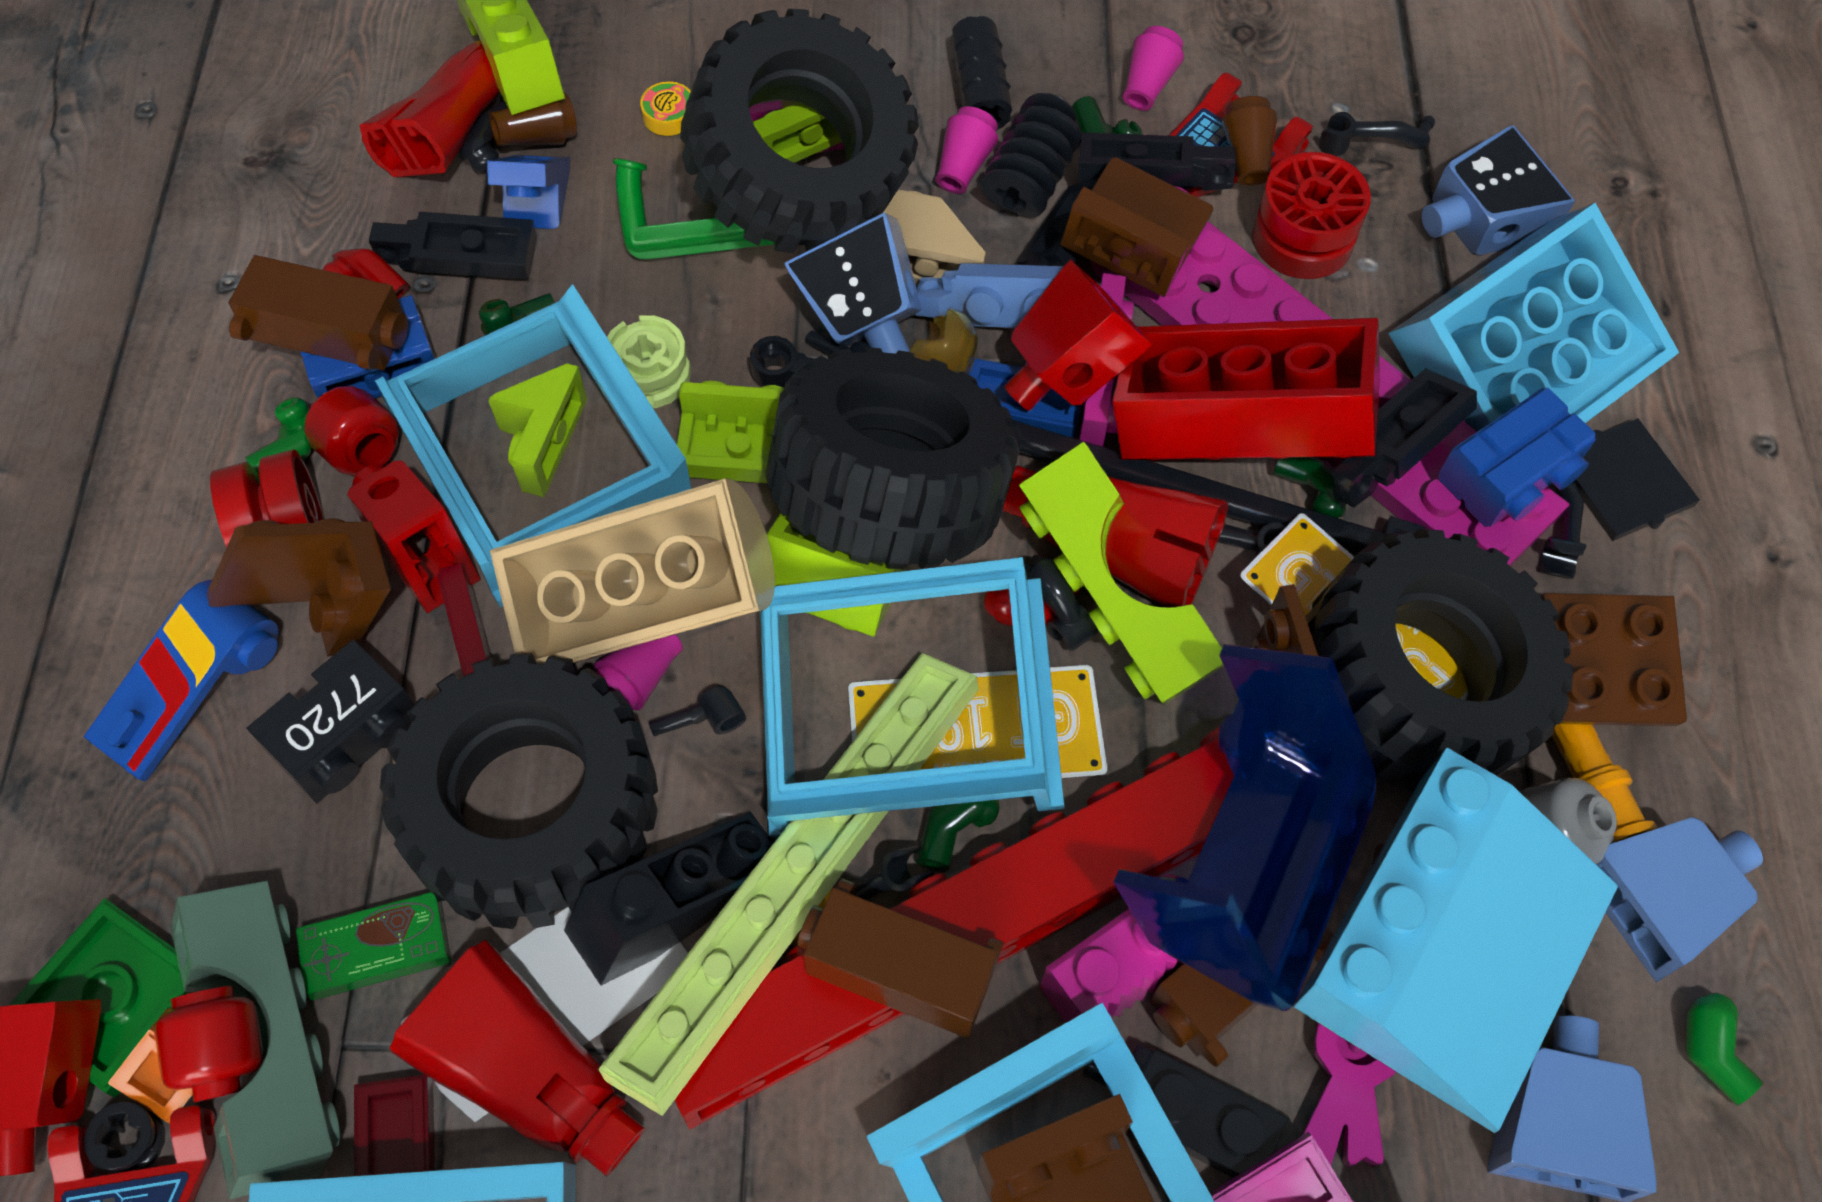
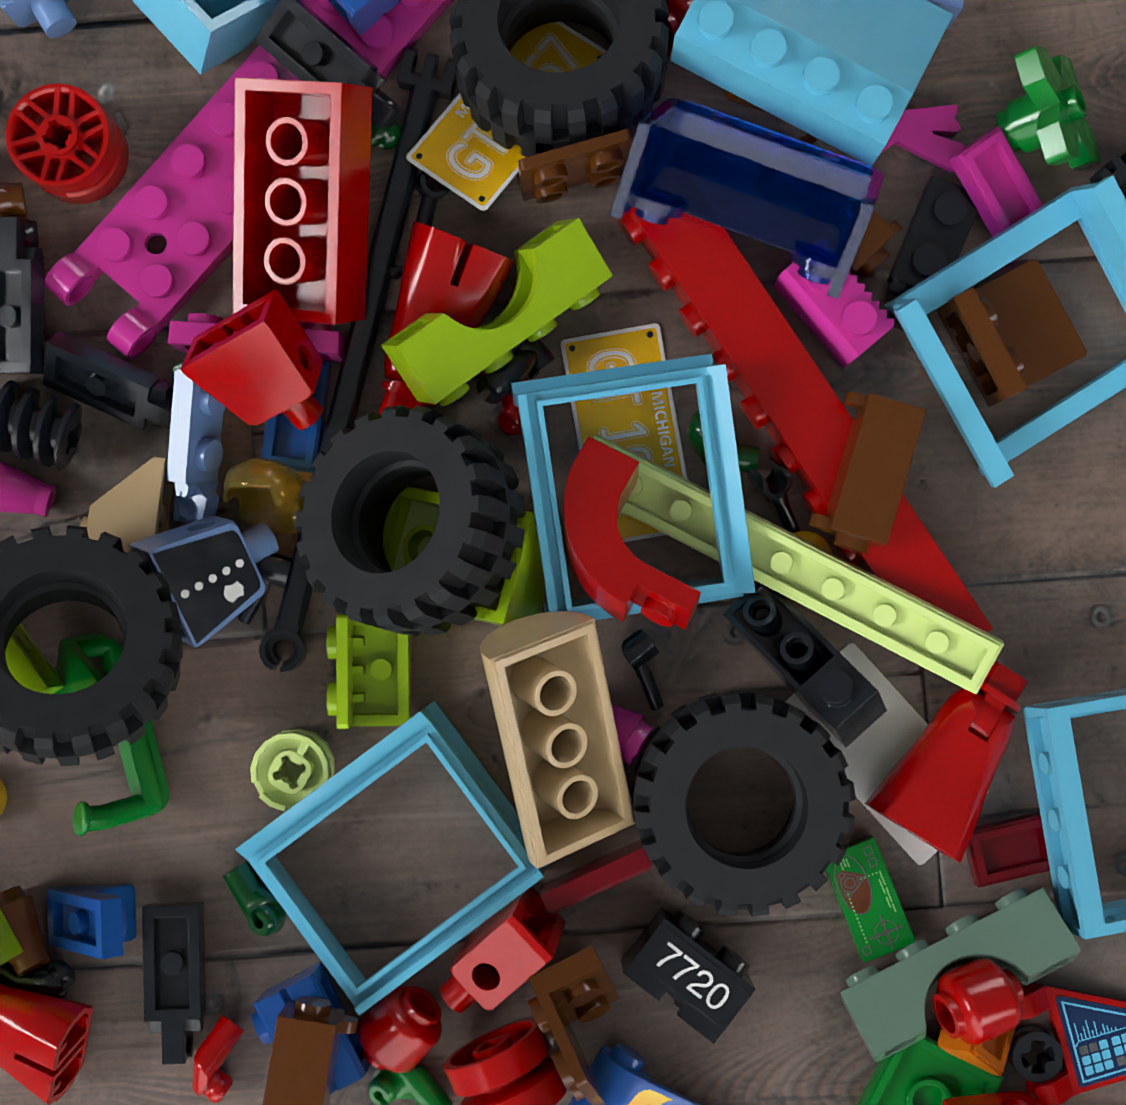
camera: 95 degrees left, 25 degrees up
(542, 418) = (361, 849): lime slope -> none
(853, 634) = (596, 552): none -> red arch
(1136, 225) = (111, 309): reddish brown bracket -> none

